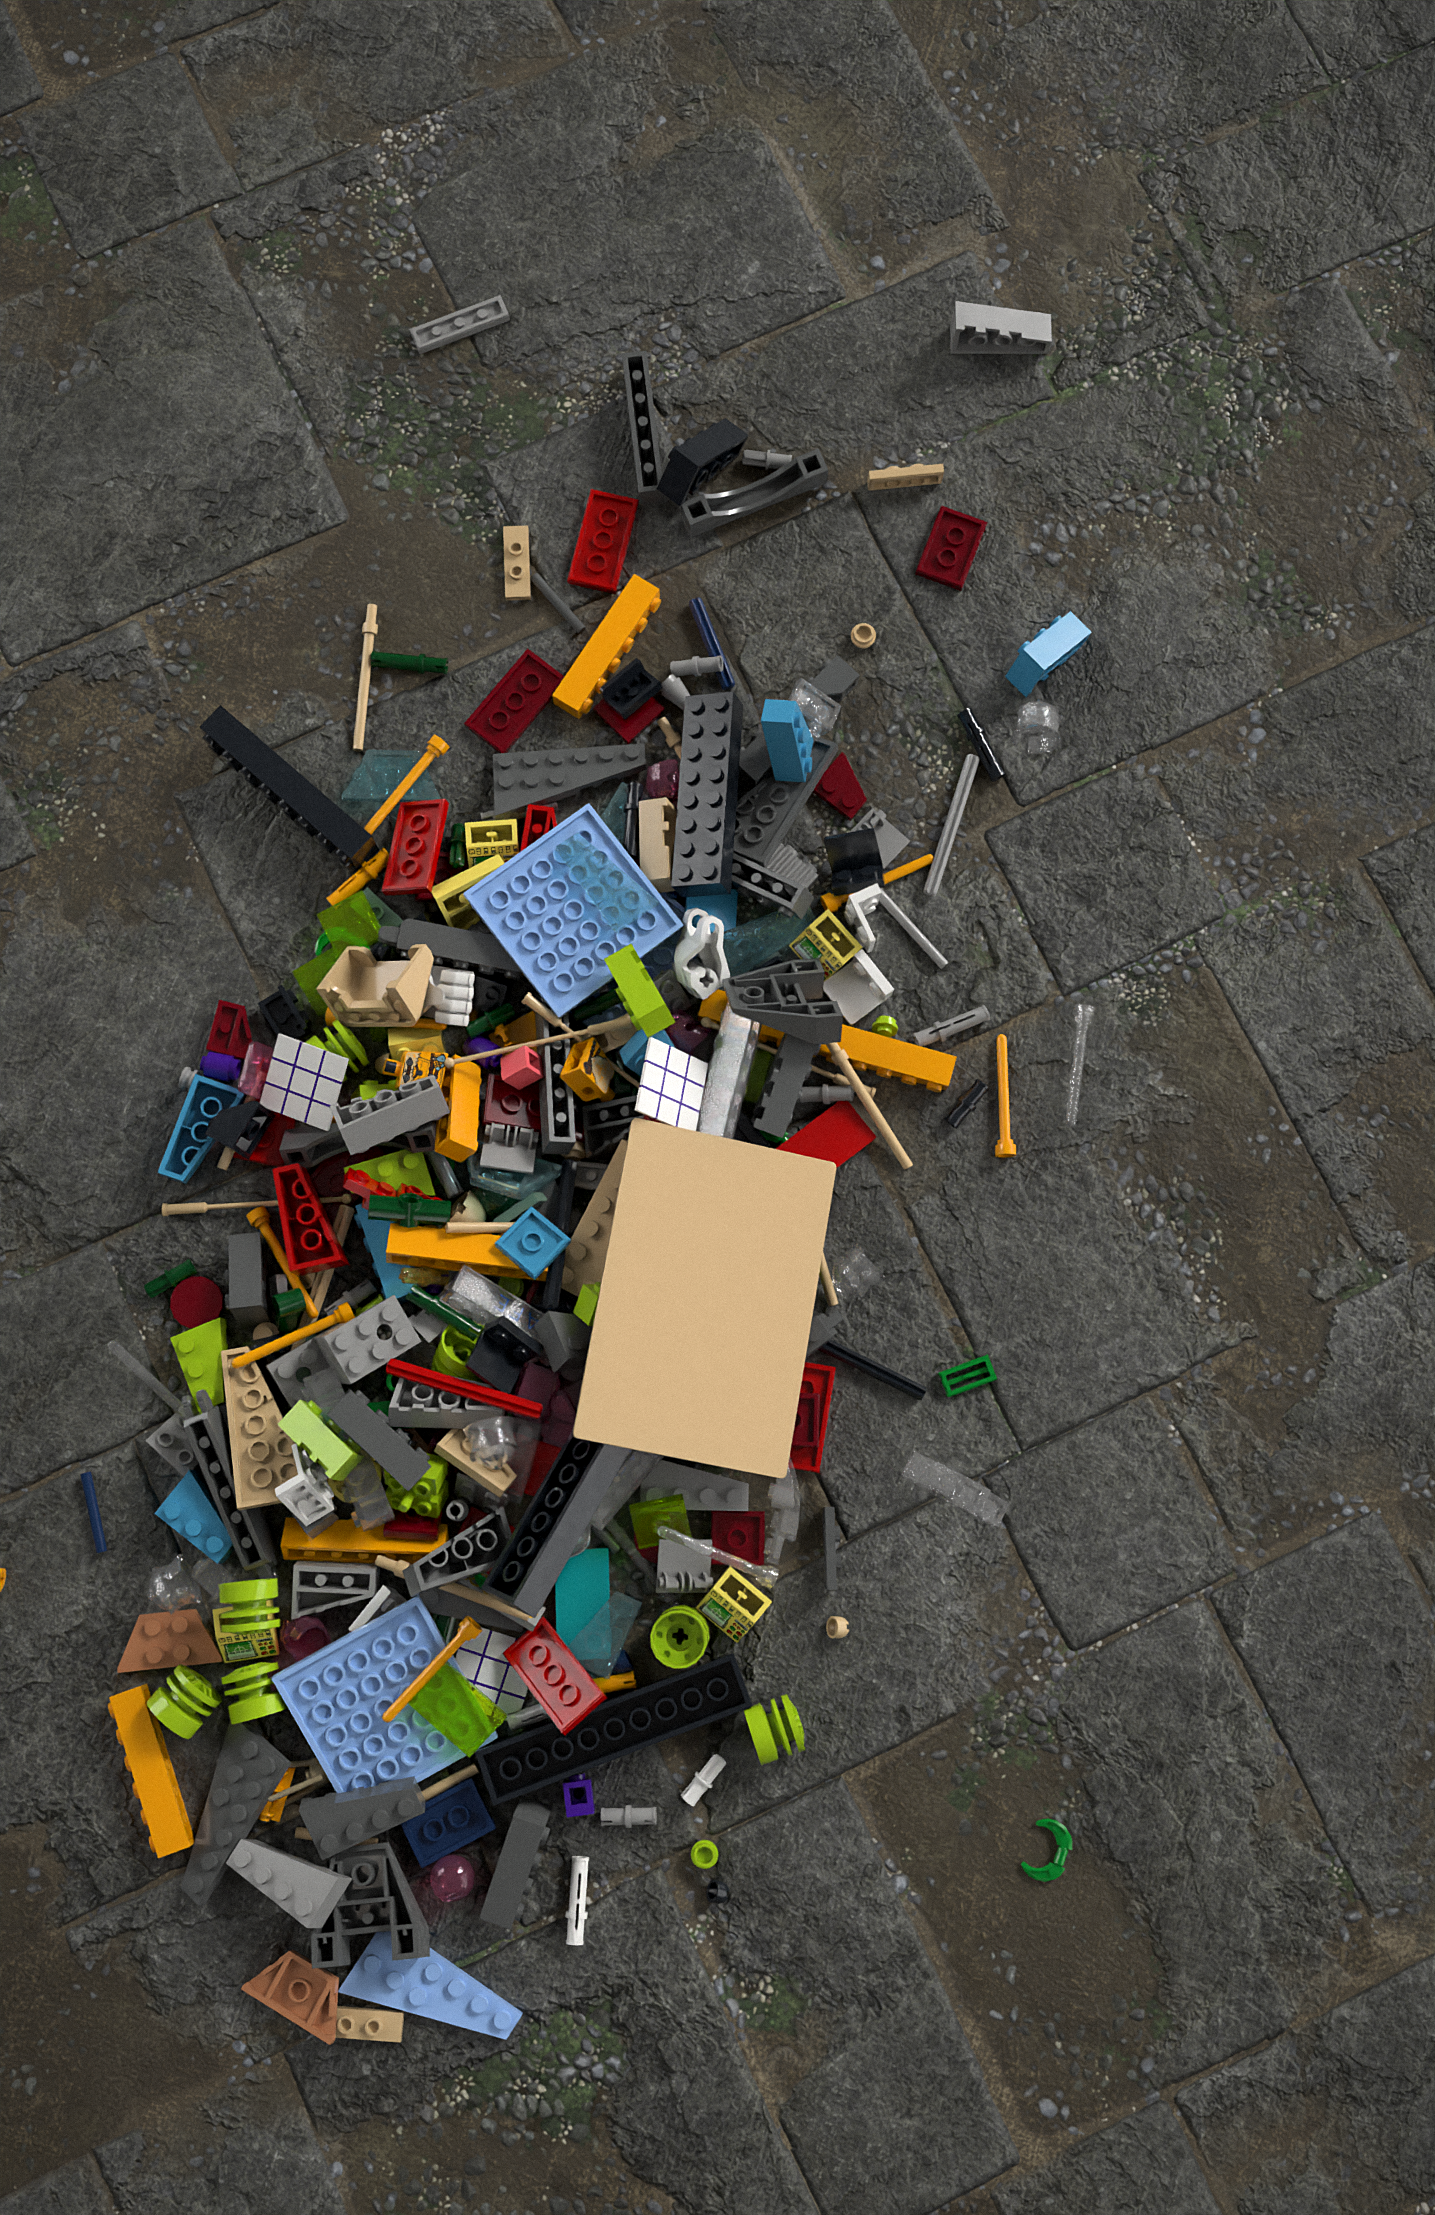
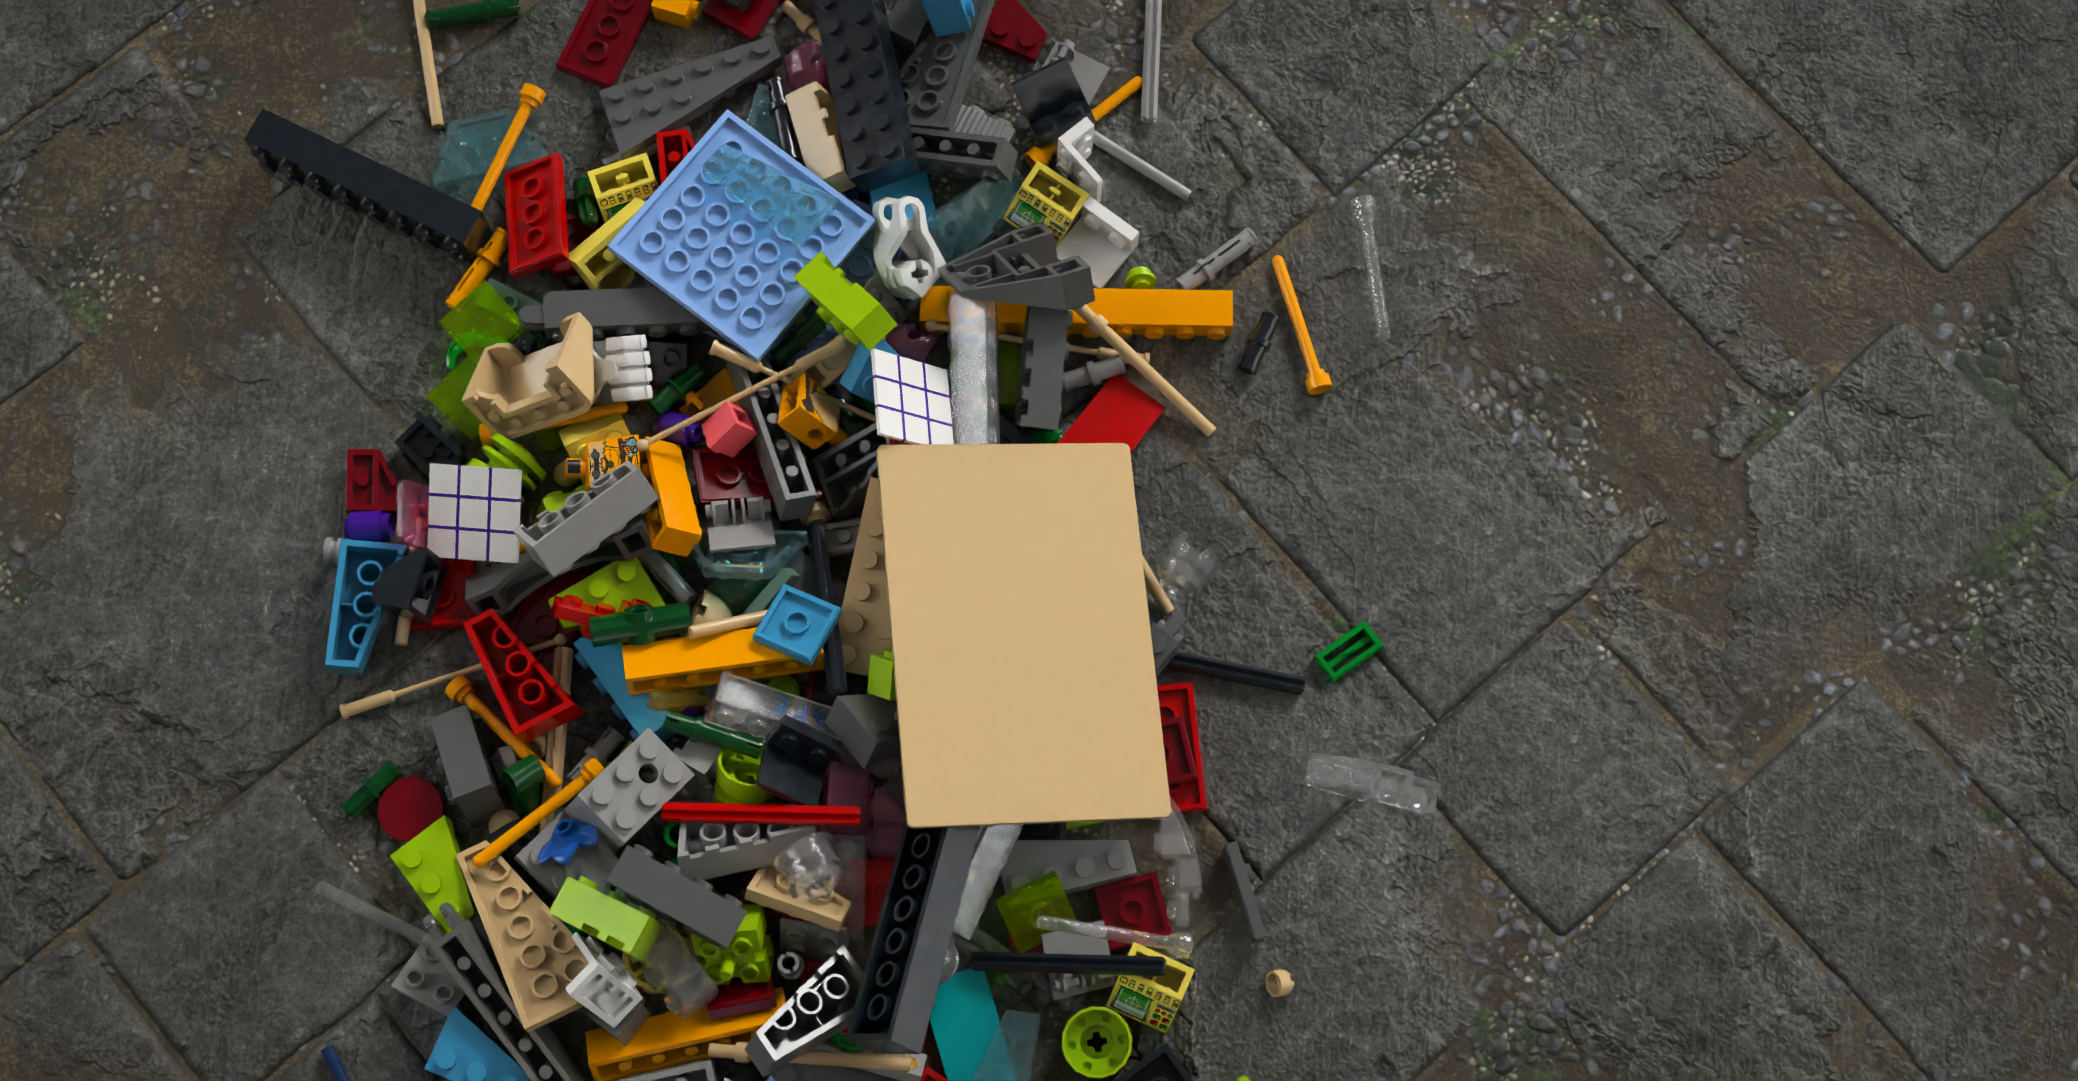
camera: 15 degrees left, 5 degrees down
(309, 1363) = (566, 839): none -> blue plate
(674, 1569) = (1068, 963): none -> black axle

